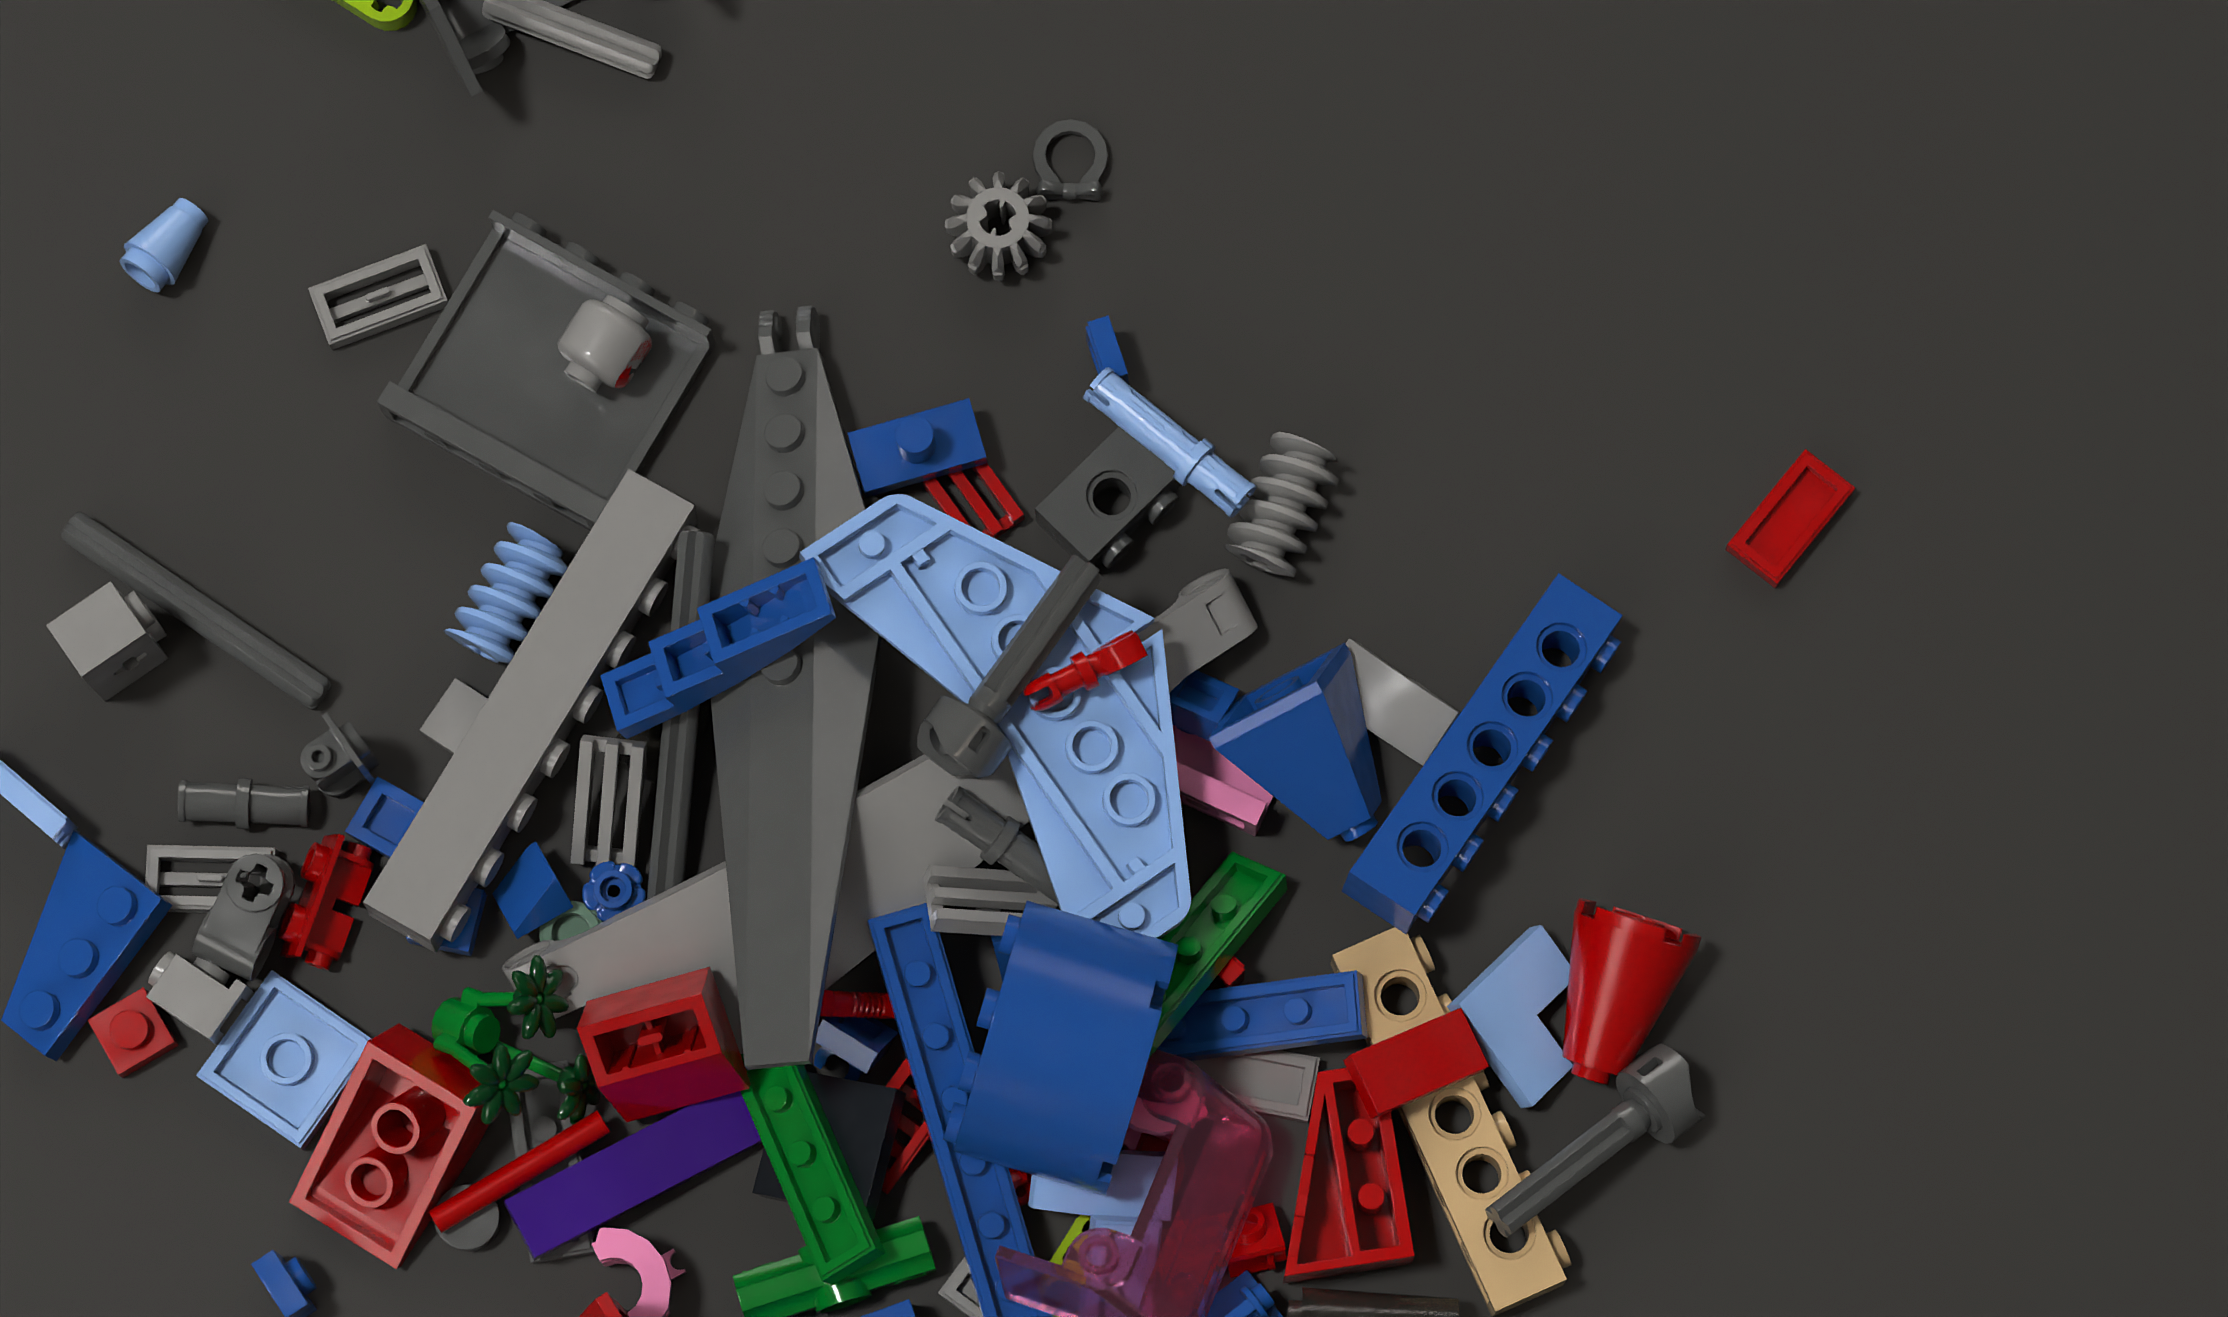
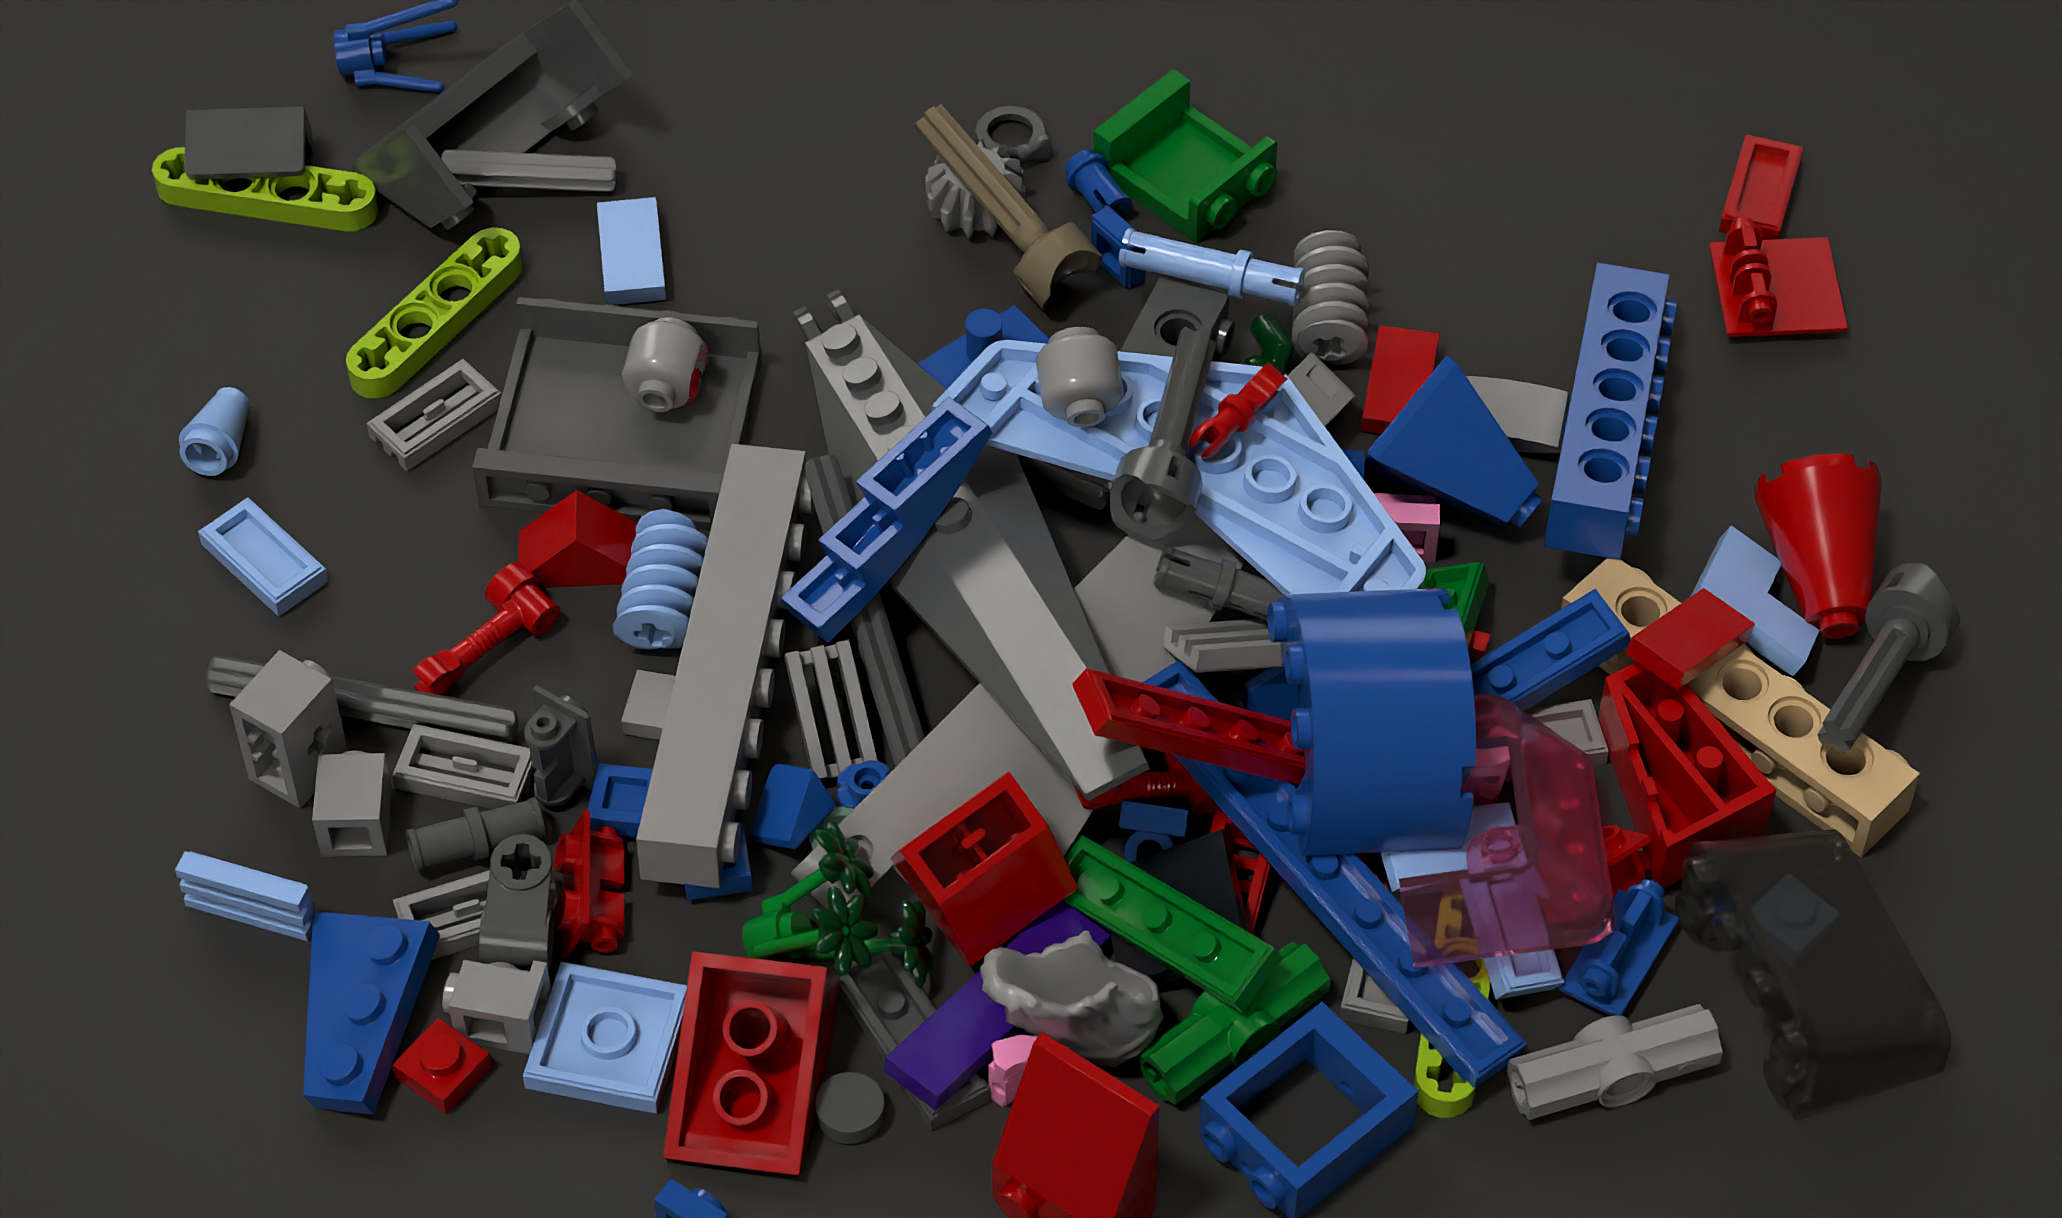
camera: 25 degrees left, 25 degrees down
(145, 729) = (352, 804): none -> light grey brick
(162, 405) = (263, 556): none -> light blue tile
(220, 689) = (461, 777): none -> light grey tile
(375, 562) = (519, 603): none -> red brick
(416, 163) = (427, 307): none -> lime beam
(454, 514) = (578, 544): none -> red slope
(519, 1171) = (885, 1039): red bar -> none
(637, 166) = (631, 251): none -> light blue tile
(688, 1207) = (1076, 998): none -> light grey piece
(872, 1013) = (1189, 726): none -> red tile
(944, 584) = (1079, 376): none -> light grey head
(1028, 344) = (1047, 254): none -> dark tan piece
(1123, 265) = (1090, 176): none -> blue pin
(1210, 539) = (1274, 342): none -> dark green arm
(1223, 266) = (1182, 160): none -> green panel
(1316, 613) = (1398, 369): none -> red tile
(1742, 647) = (1775, 284): none -> red hinge

